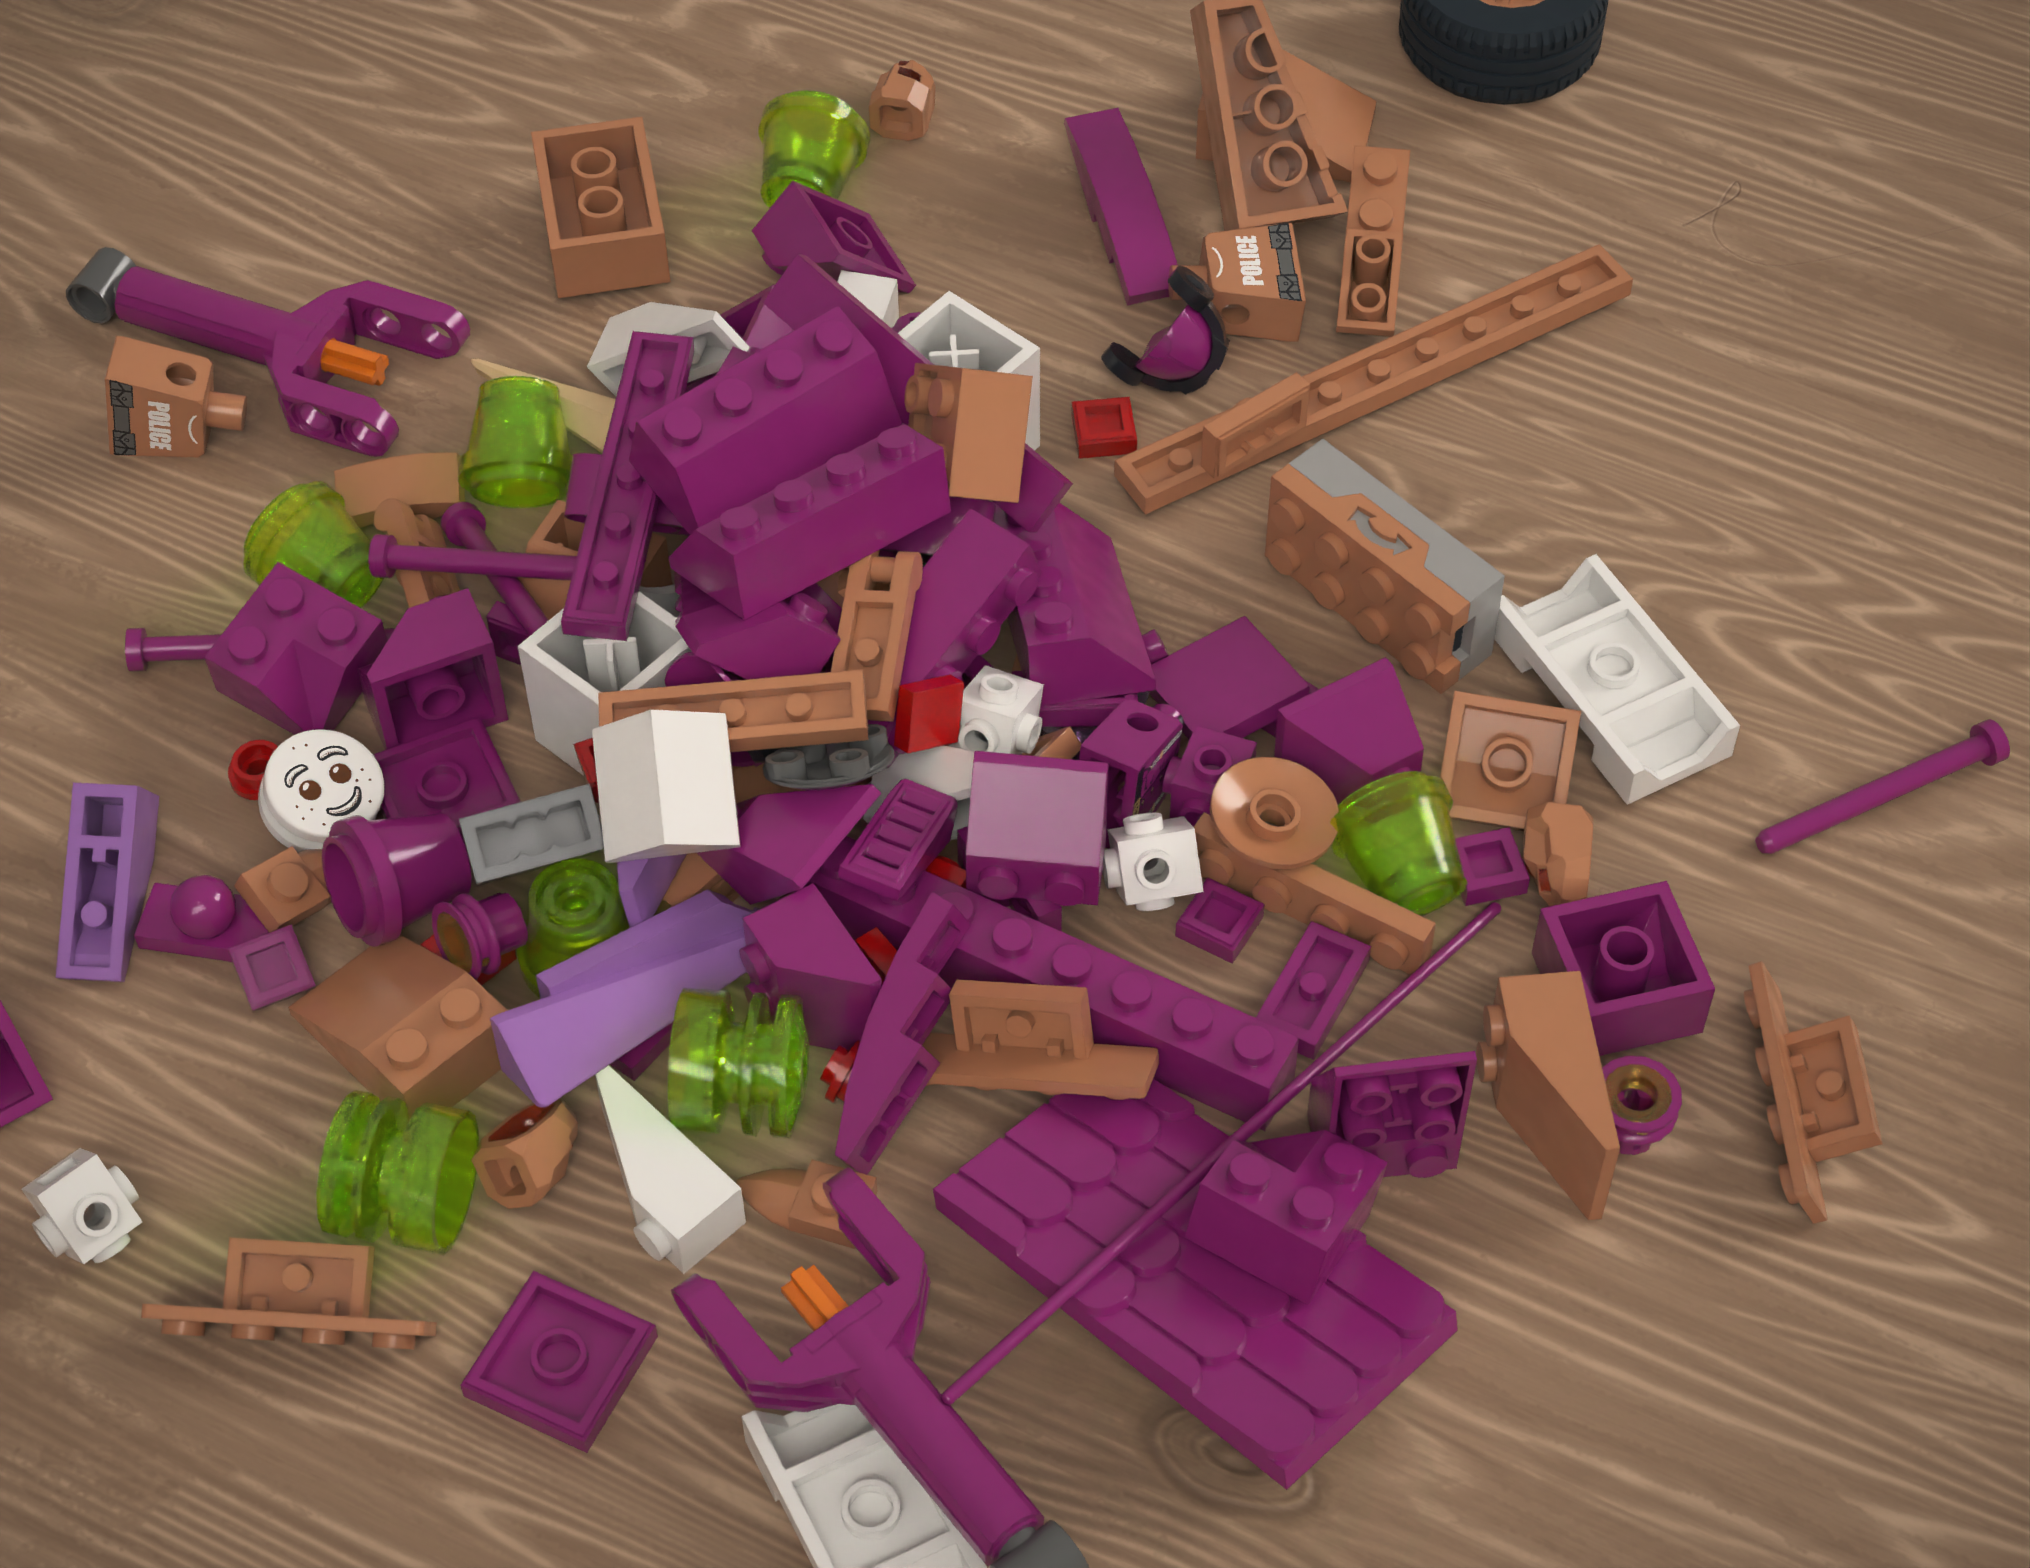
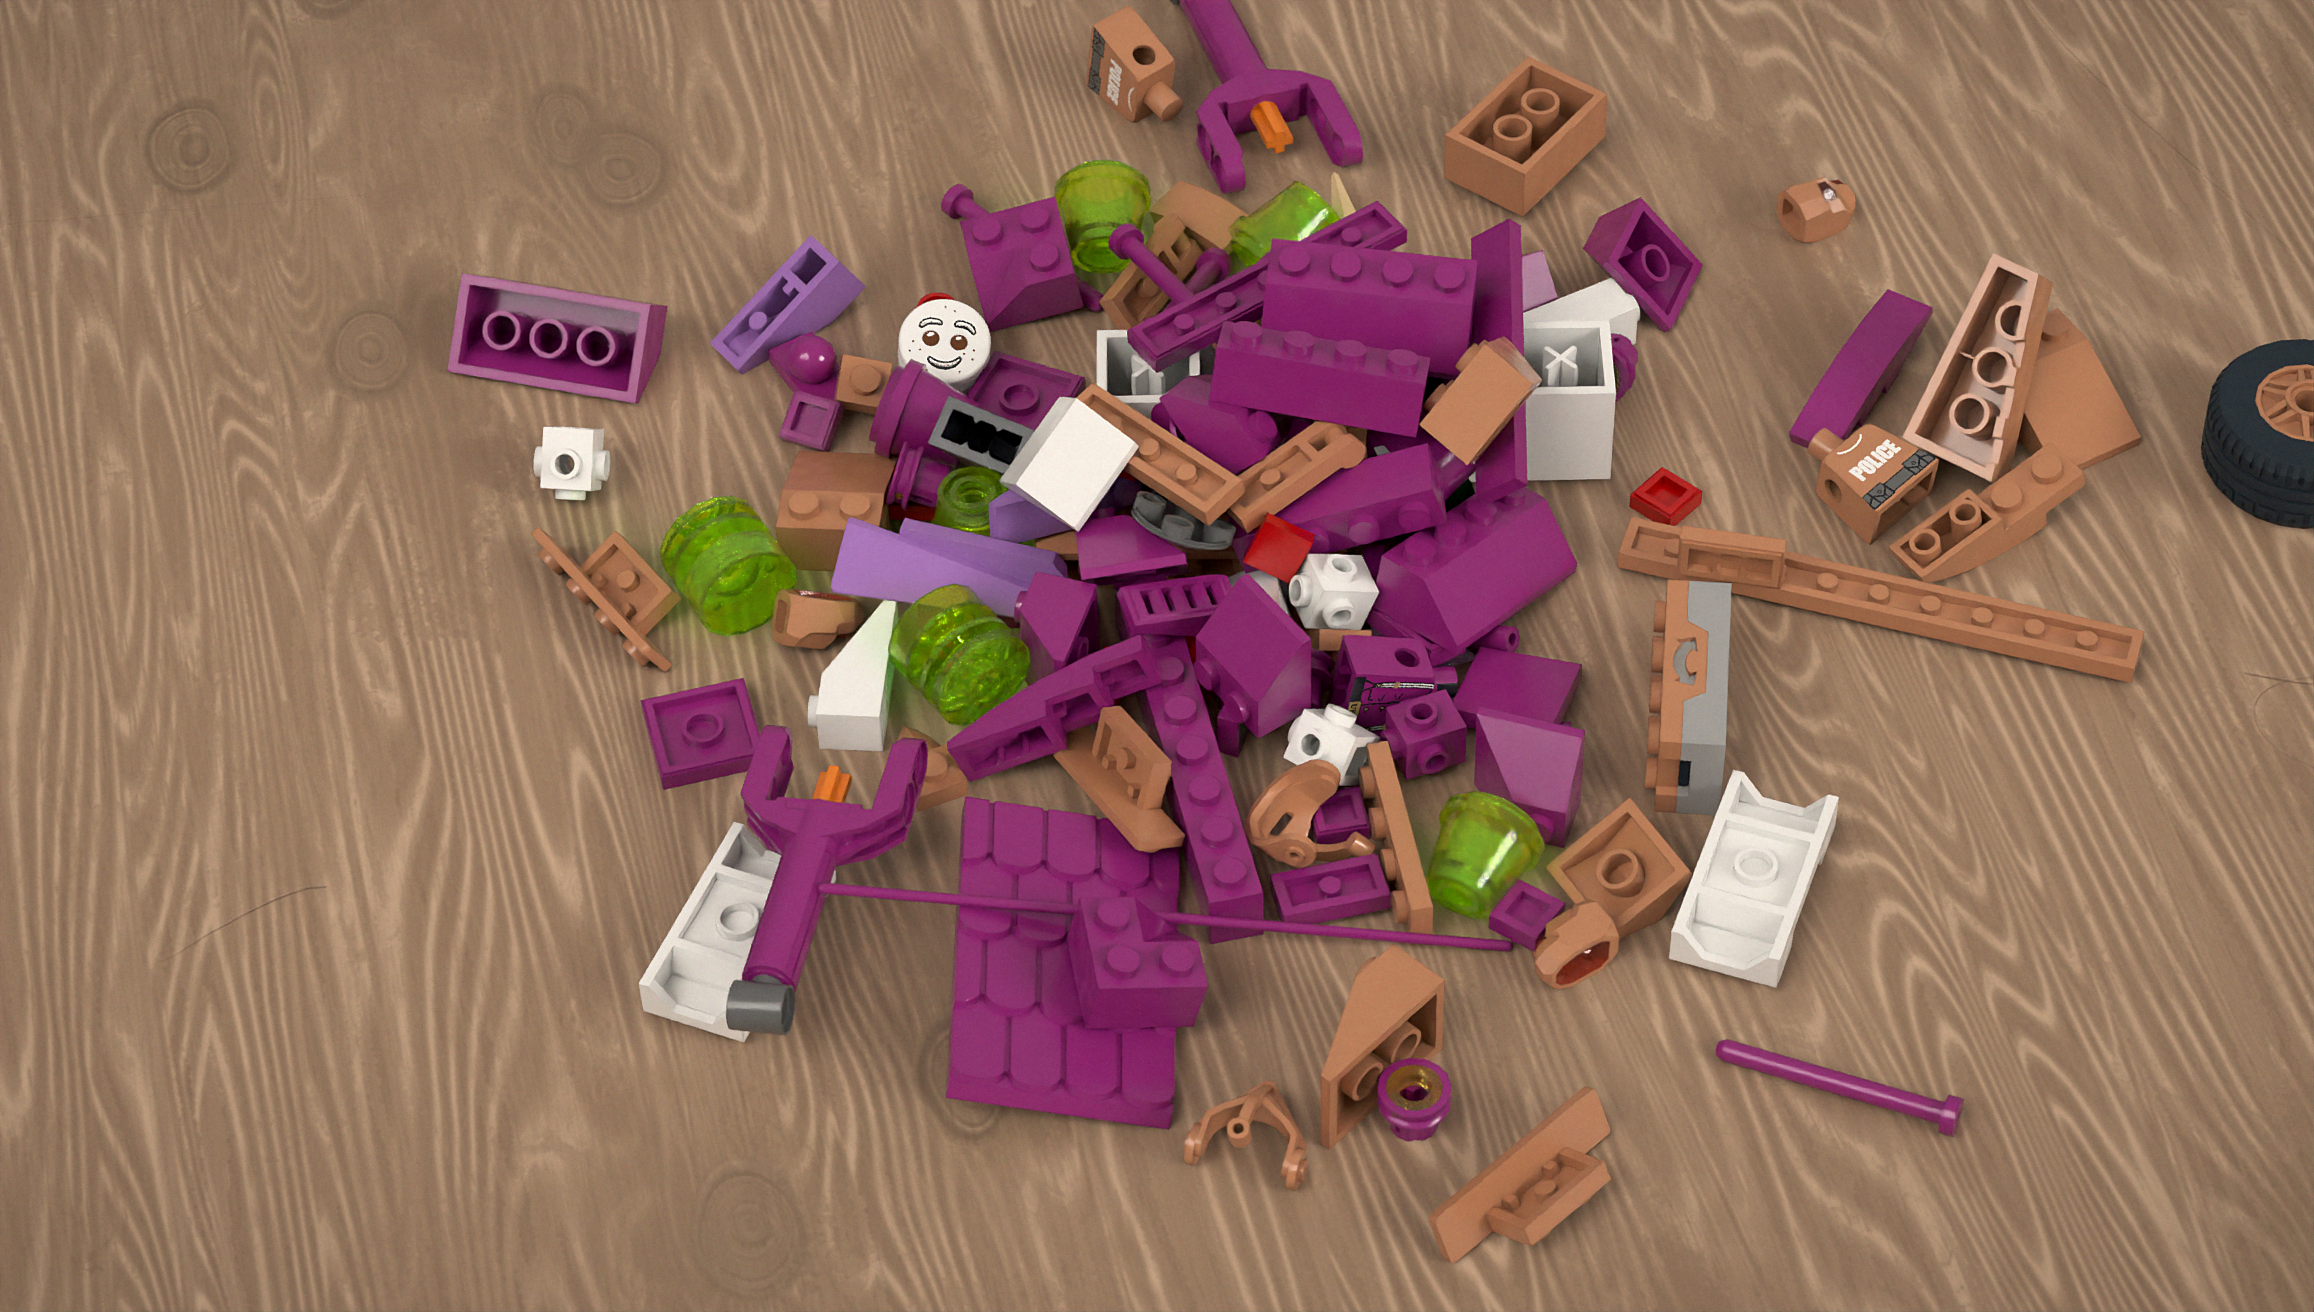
camera: 50 degrees right, 5 degrees down
(434, 672) = (1061, 318): magenta slope -> none
(710, 333) = (1439, 233): white slope -> none
(811, 142) = (1698, 192): clear neon green piece -> none
(1183, 353) = (1767, 480): cap -> none
(1187, 931) = (1299, 795): none -> nougat helmet
(1275, 793) = (1416, 751): nougat dish -> none
(1398, 1110) = (1259, 976): magenta slope -> none
(1526, 1226) = (1258, 1104): none -> nougat helmet
(1634, 964) = (1506, 1025): magenta slope -> none

